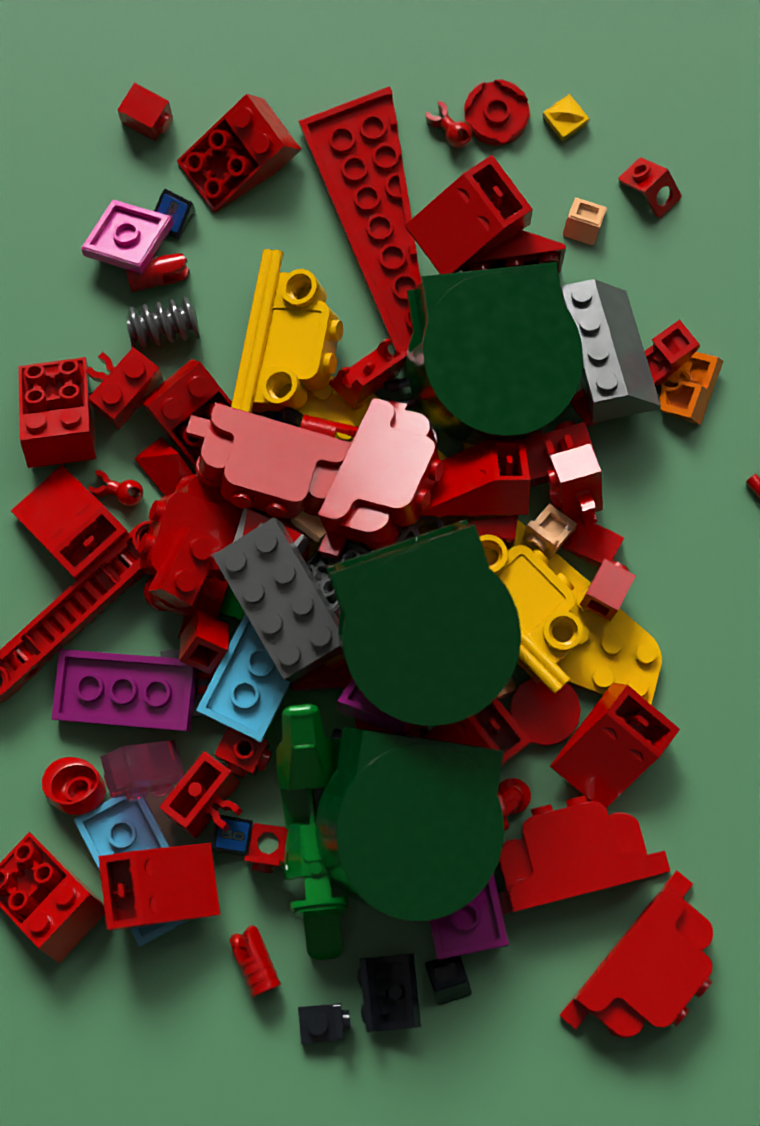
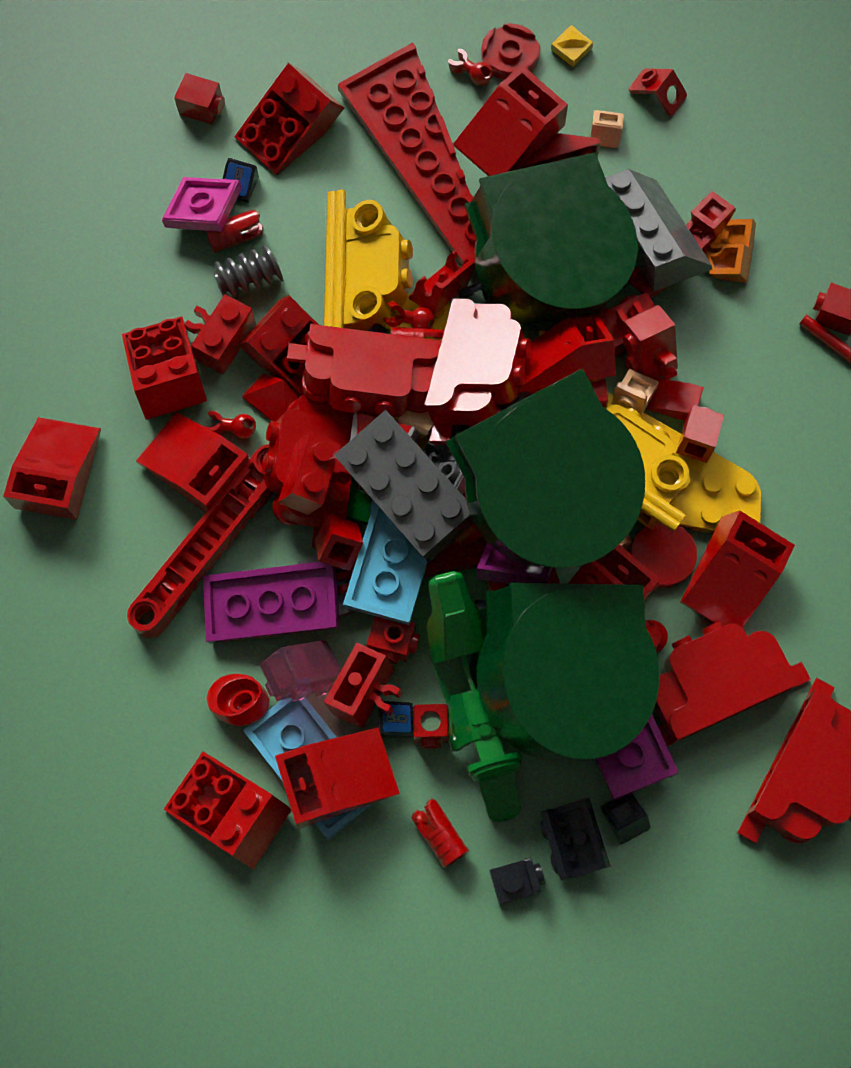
camera: 10 degrees left, 5 degrees down
(335, 409) = (417, 318): none -> red arm

